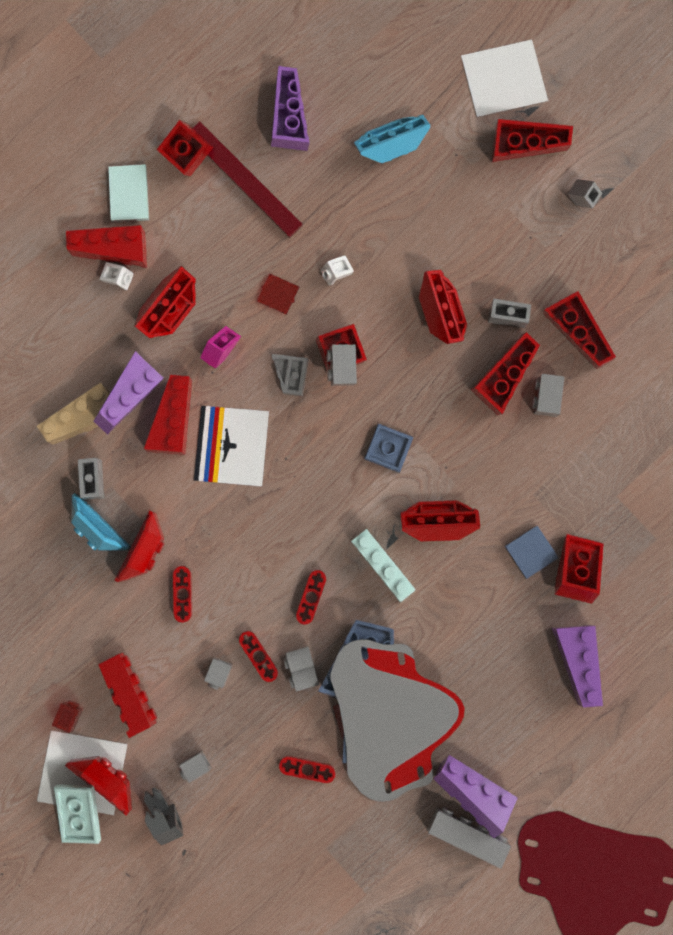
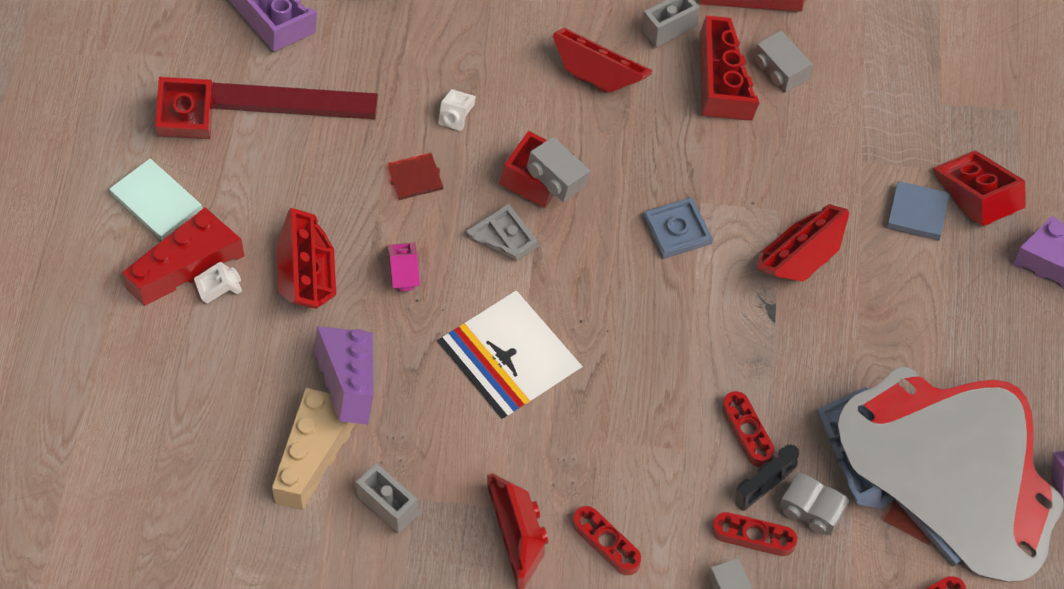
camera: 45 degrees left, 25 degrees down
(95, 528) = (441, 547): medium azure wedge -> none
(172, 417) = (422, 372): red wedge -> none
(295, 632) = (767, 477): none -> black hinge
(383, 565) = (790, 334): light aqua brick -> none

